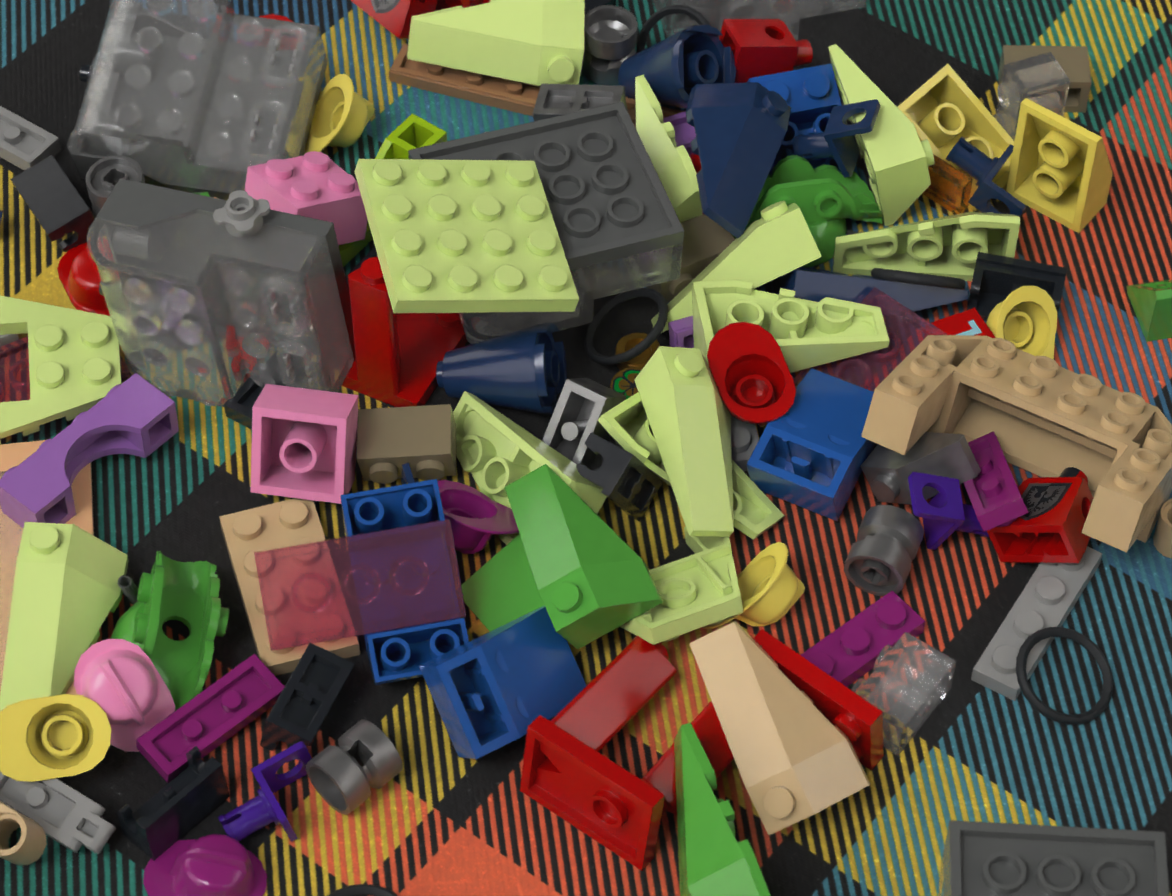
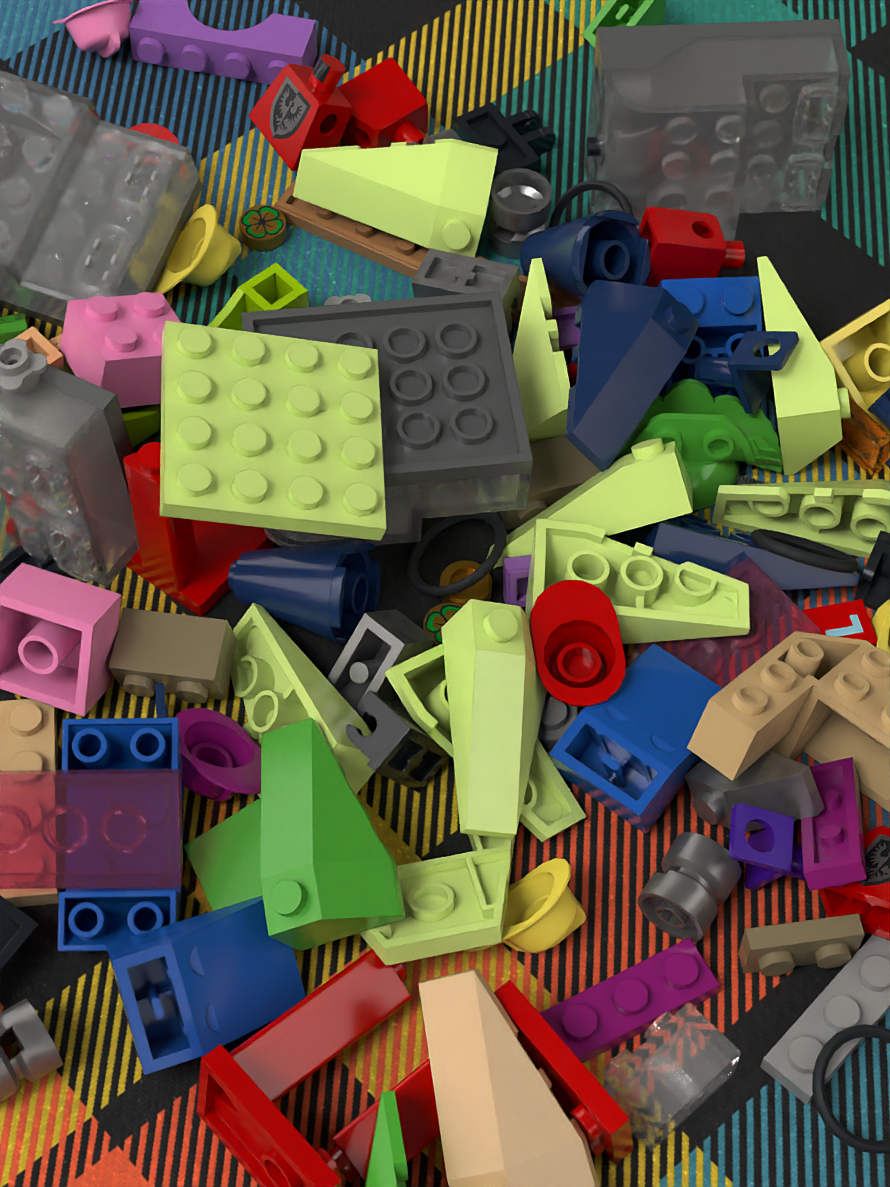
camera: 10 degrees right, 5 degrees up
(384, 90) = (262, 227): none -> pearl gold tile
(983, 579) = (782, 947): none -> dark tan plate

